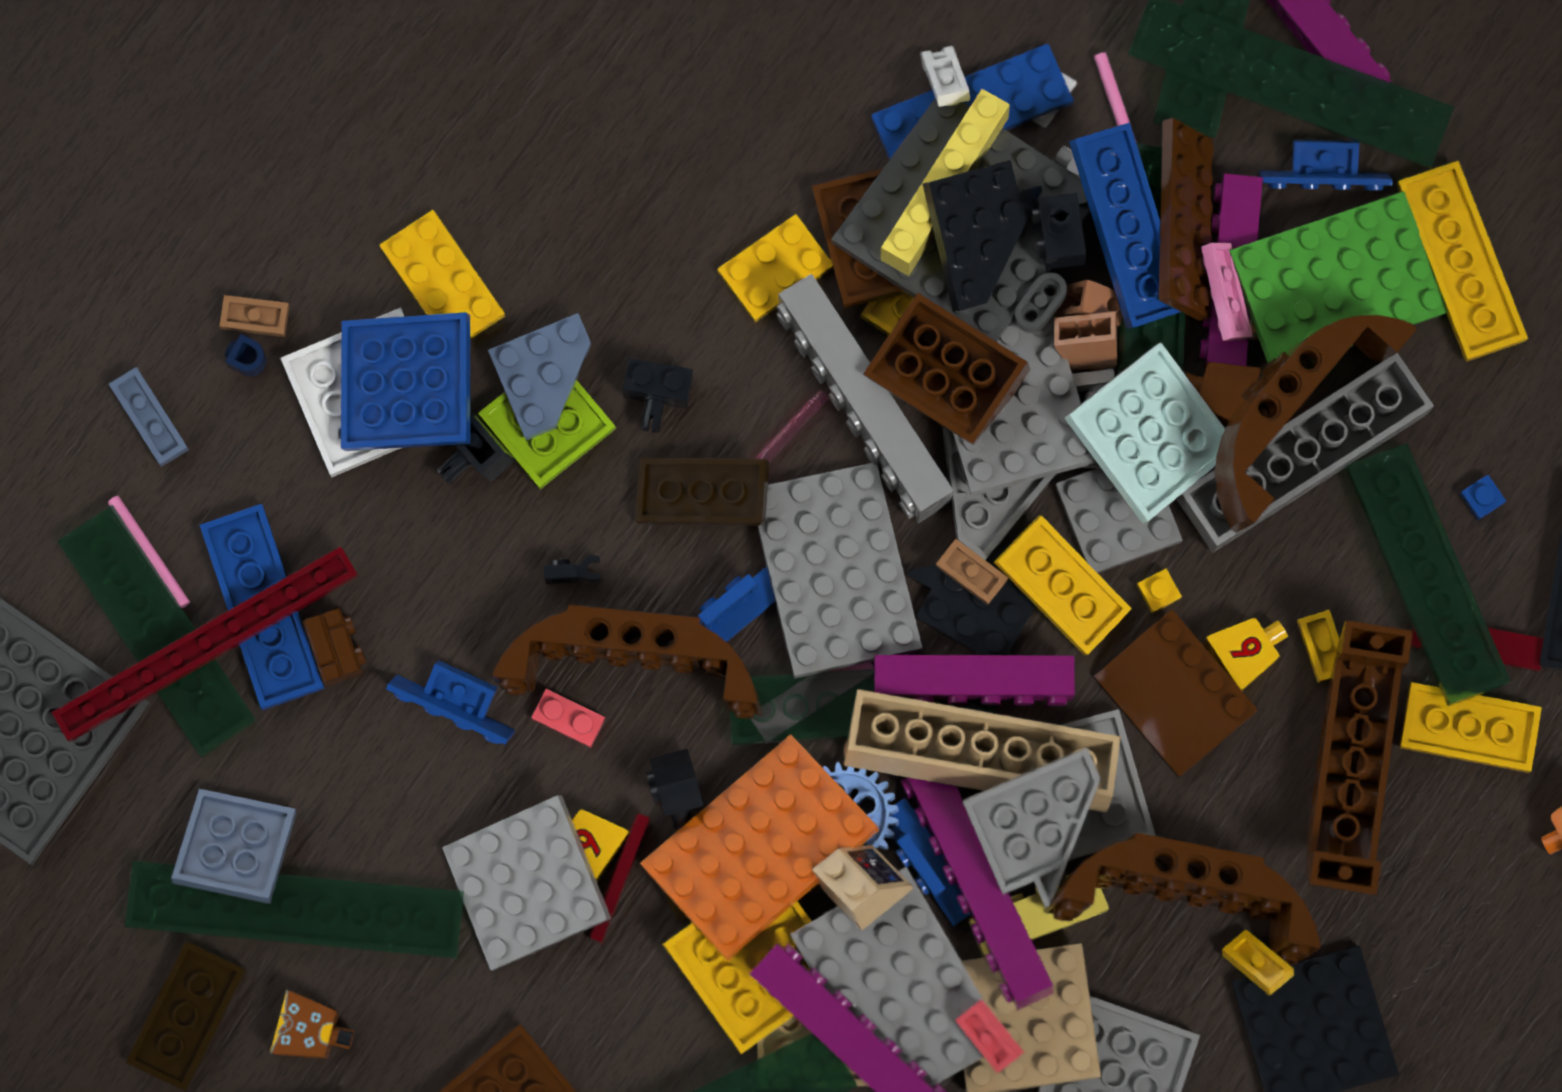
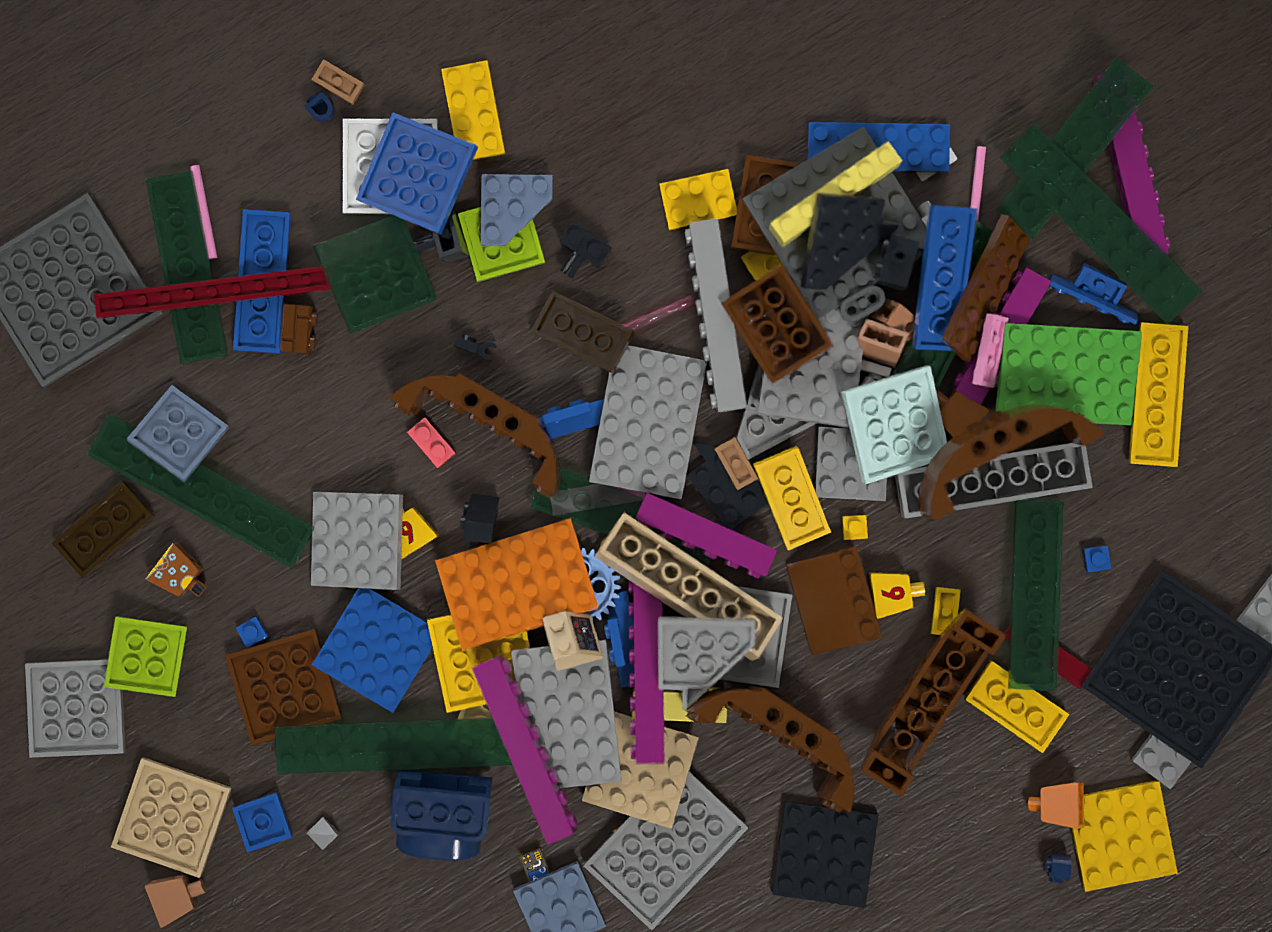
camera: 25 degrees right, 10 degrees up
(148, 416) = (240, 120): sand blue plate -> none
(404, 531) = (375, 273): none -> clear green plate
(438, 1066) = (252, 632): none -> blue plate
(456, 698) = (362, 398): blue bracket -> none
(611, 1014) = (375, 648): none -> blue plate
(621, 874) = (421, 560): dark red tile -> none
(945, 77) = (869, 119): white plate -> none
(989, 1036) = (609, 775): coral plate -> none
(1257, 962) = (807, 798): yellow plate -> none

